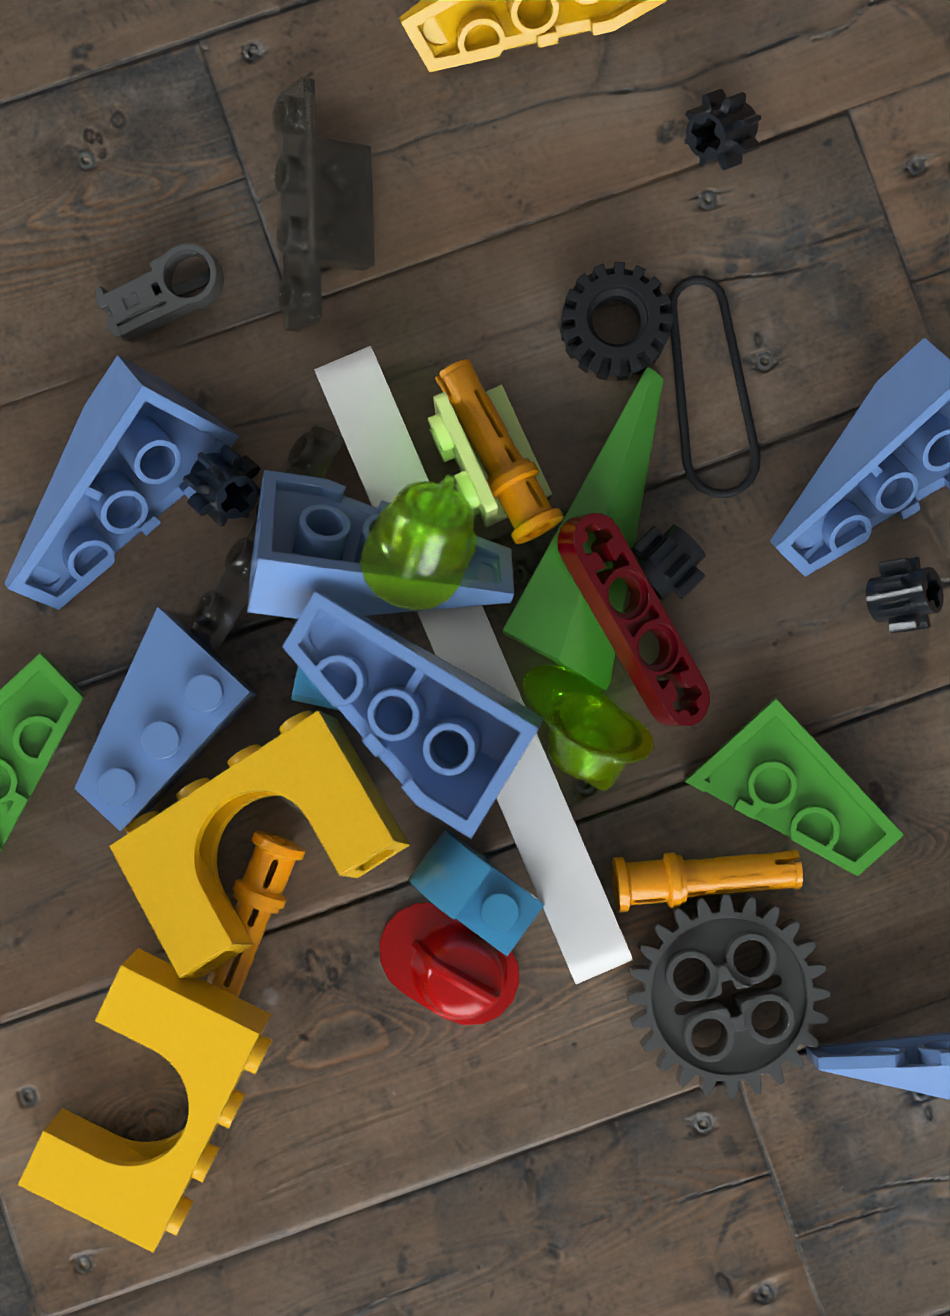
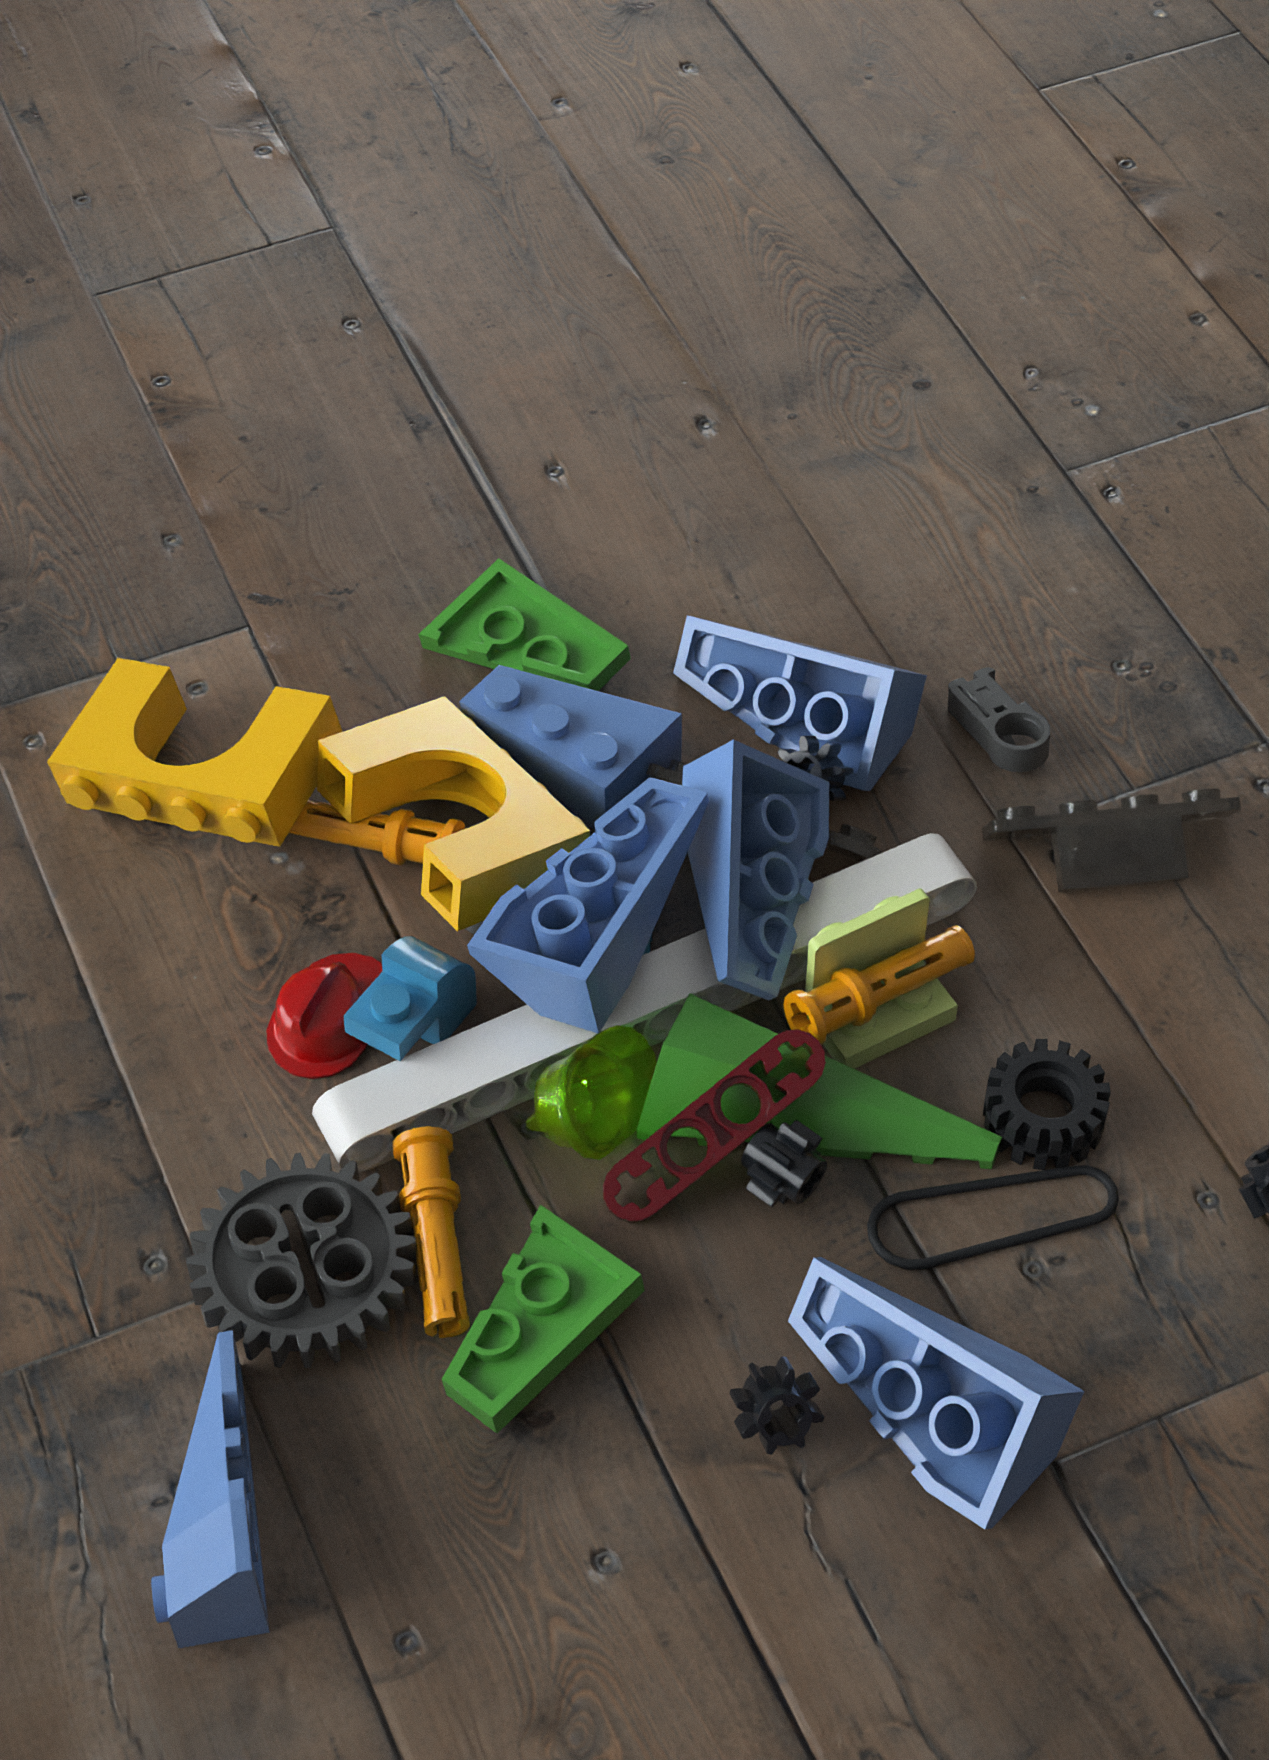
camera: 85 degrees right, 35 degrees down
(420, 546) = (768, 894): clear neon green piece -> none

